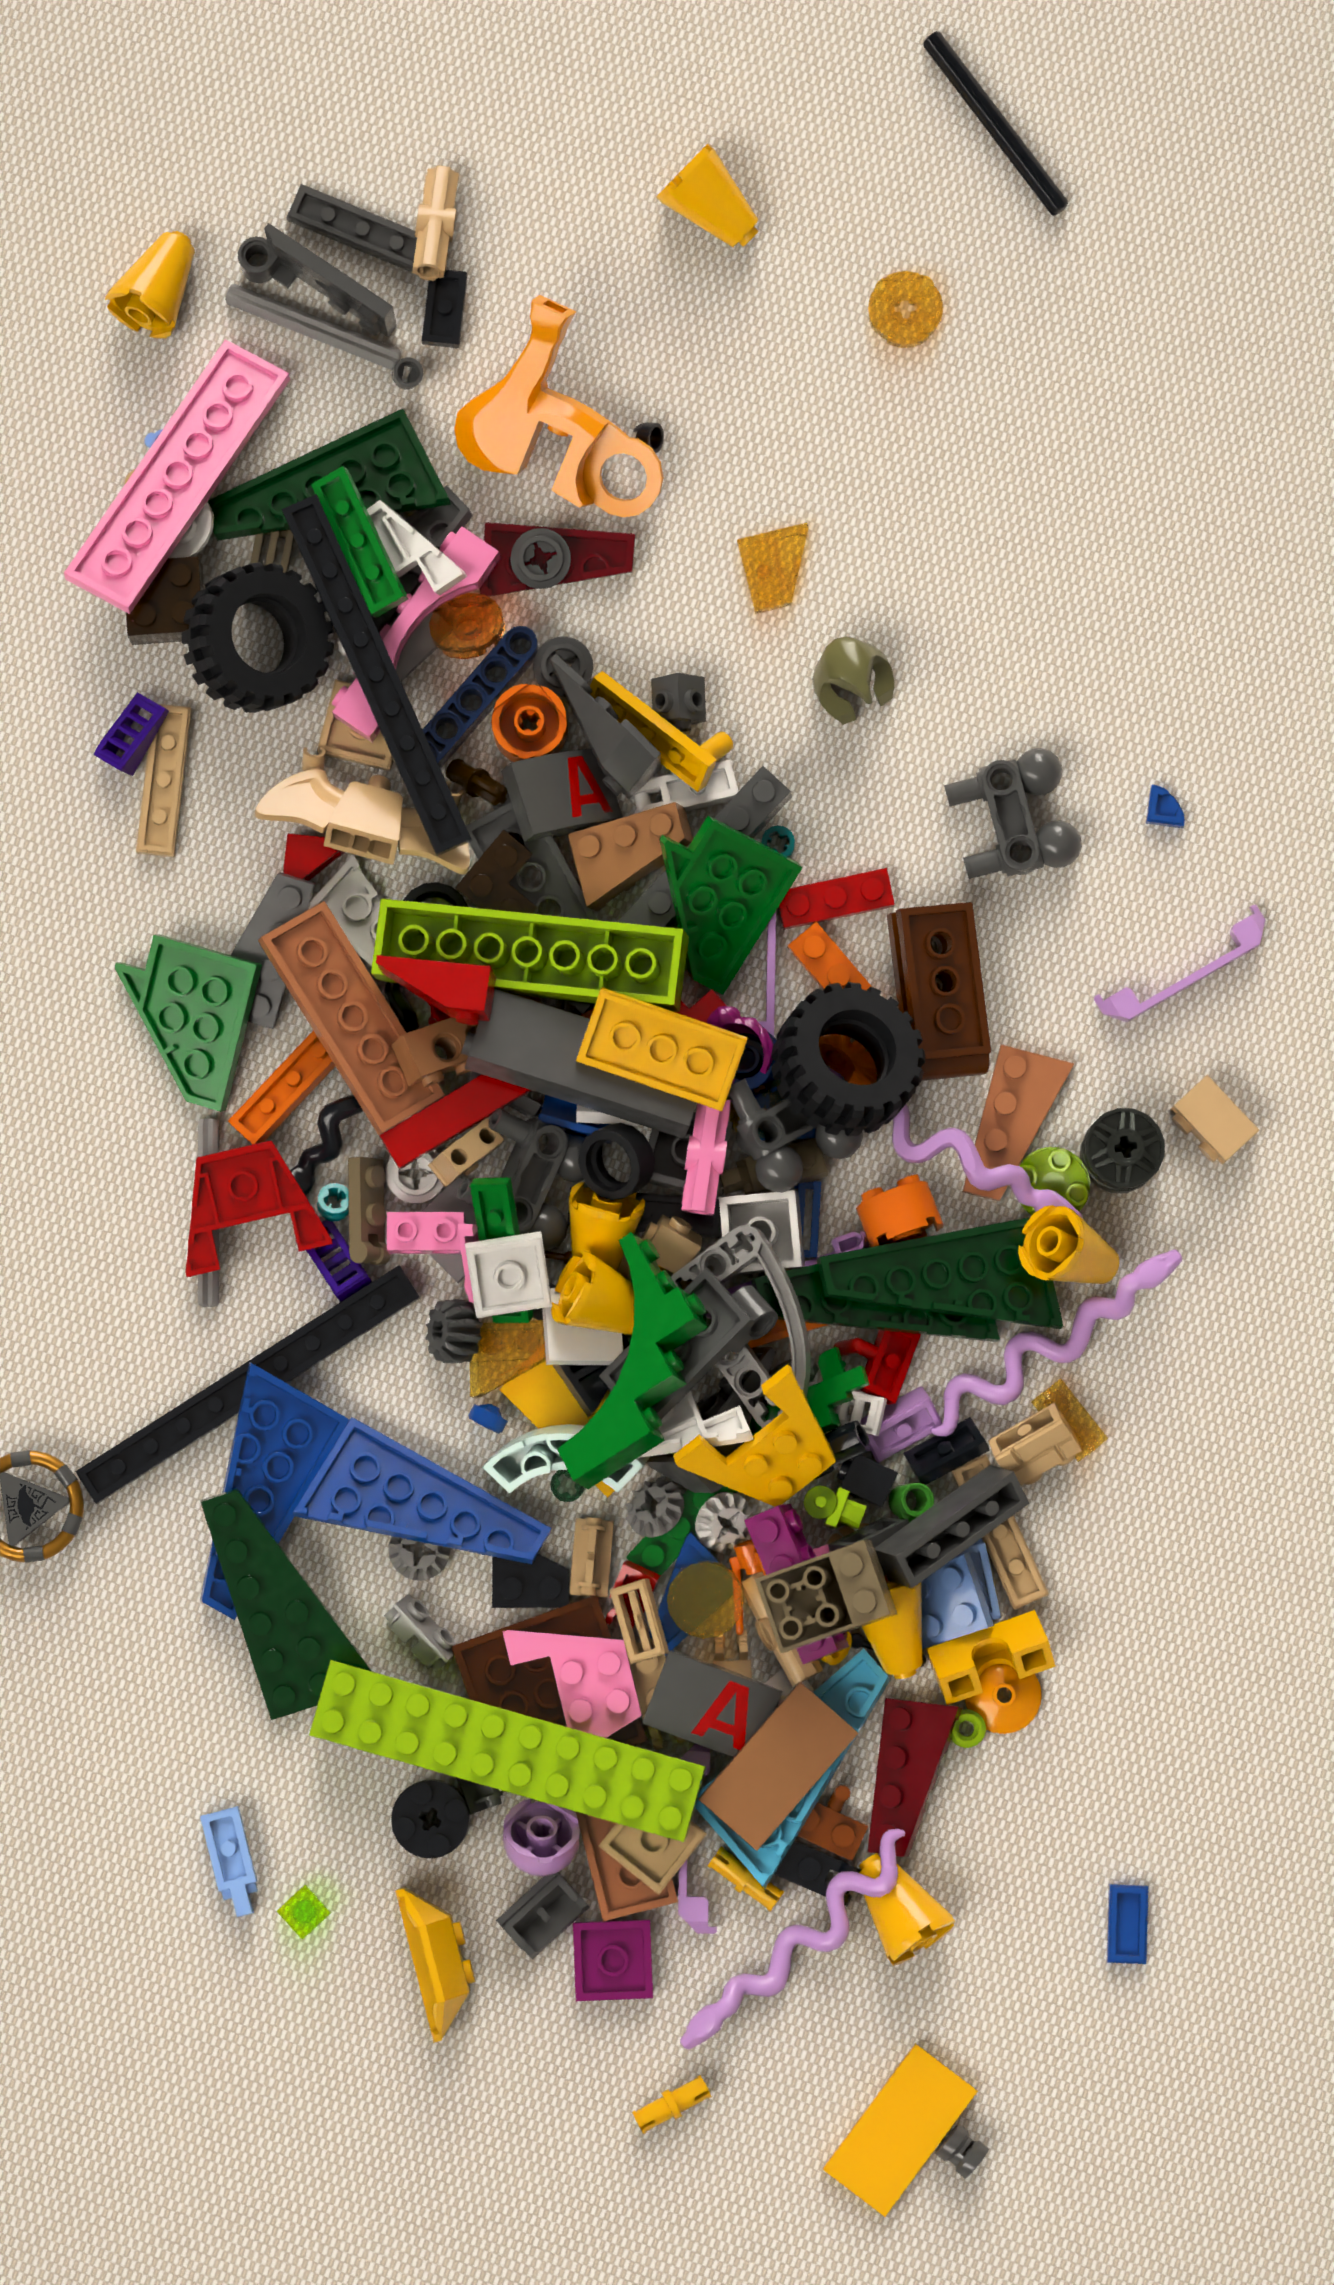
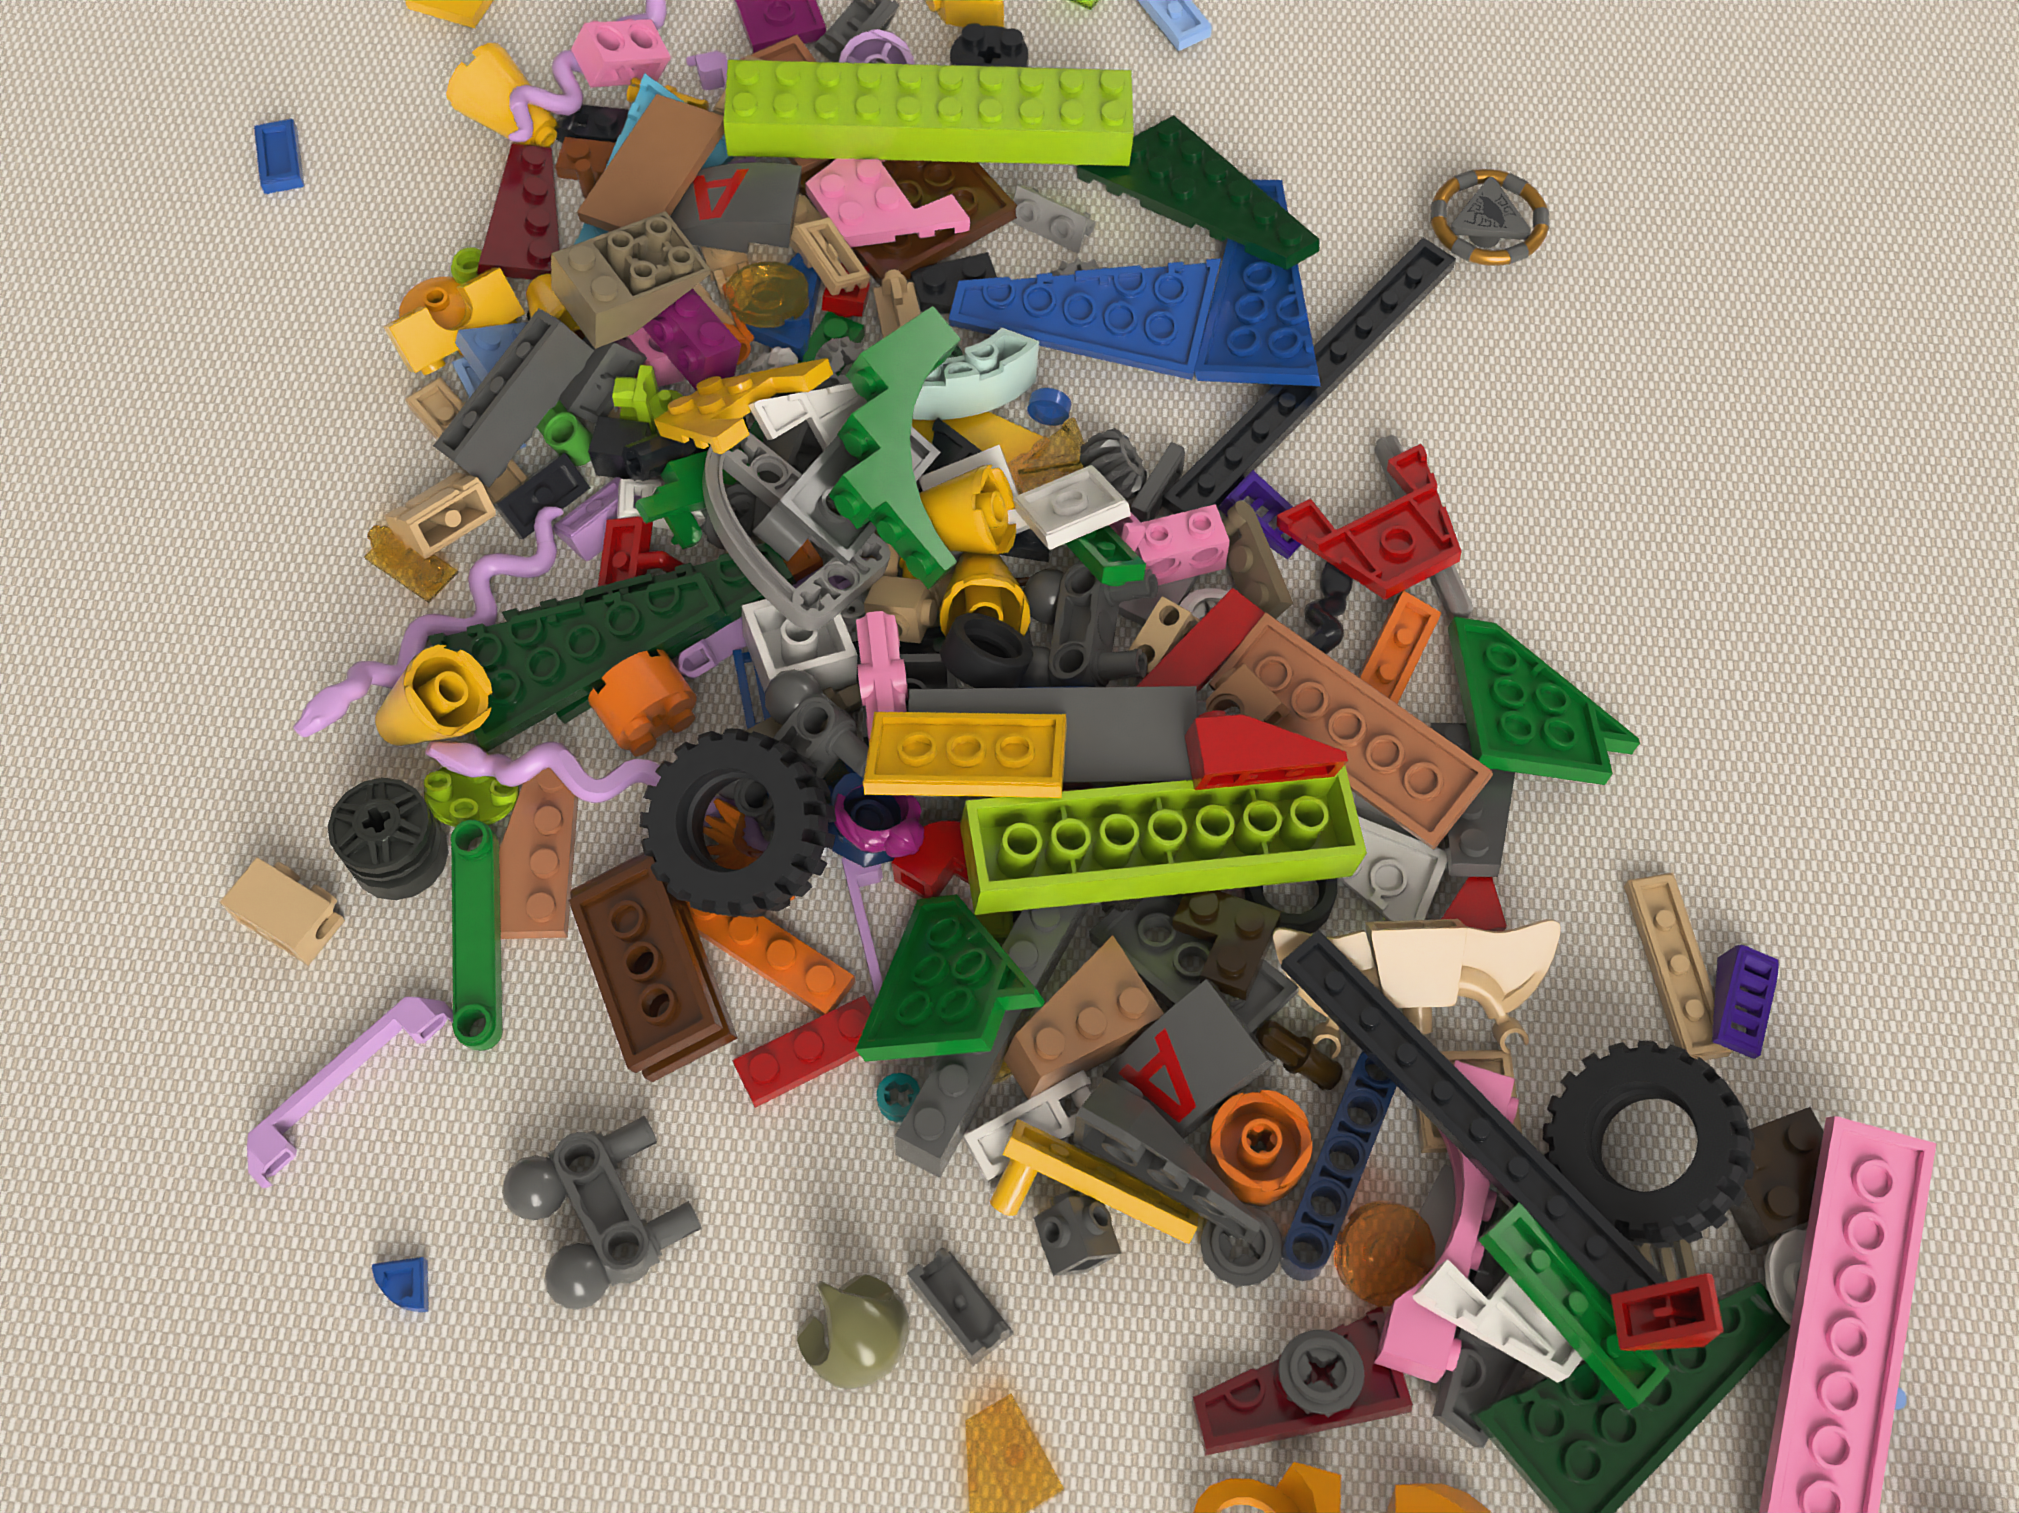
camera: 165 degrees right, 20 degrees down
(309, 505) = (1668, 1314): none -> red slope
(328, 1212) = (1304, 570): teal bush -> none
(420, 1307) = (1162, 478): none -> dark grey tile
(774, 679) = (959, 1306): none -> dark grey hinge
(779, 1924) = (619, 51): none -> bright pink brick
(1067, 1056) = (476, 935): none -> green piece

